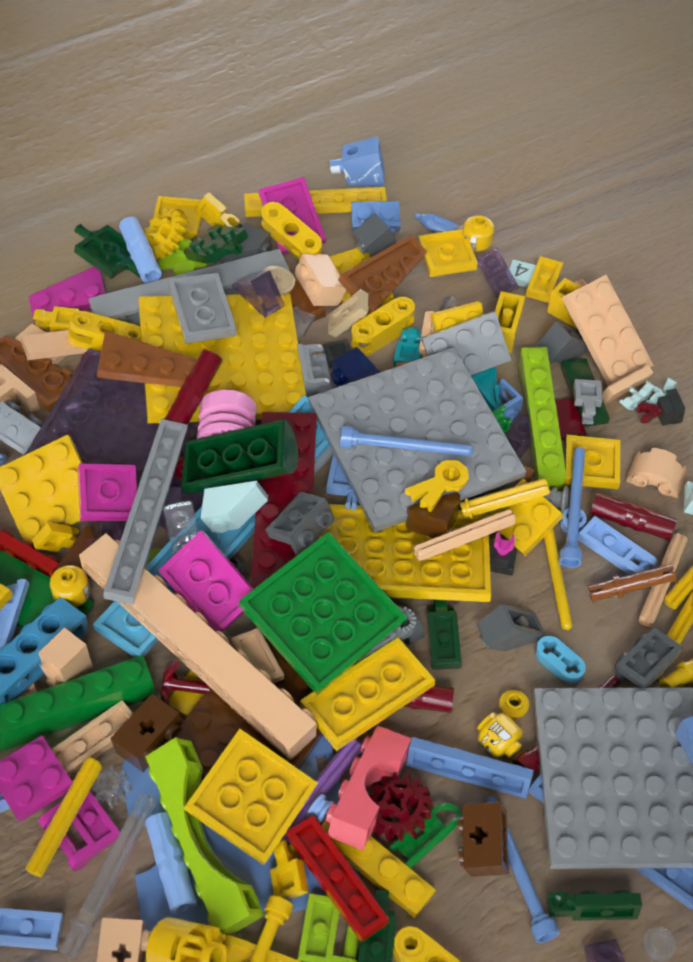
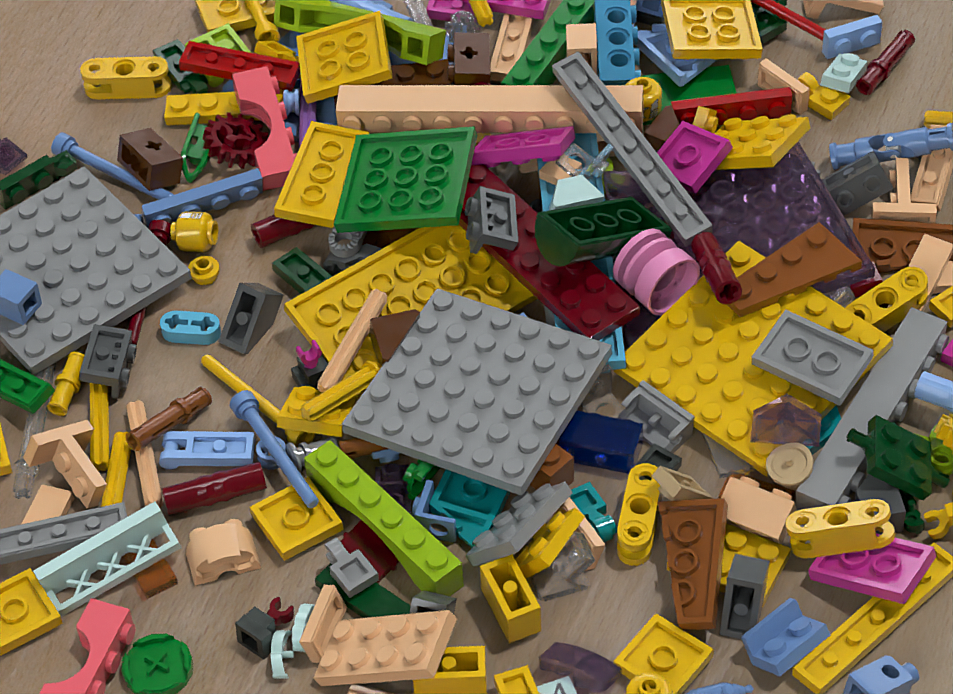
camera: 145 degrees right, 5 degrees down
(351, 438) = (525, 320): medium blue piece -> none
(449, 476) = (404, 351): yellow piece -> none

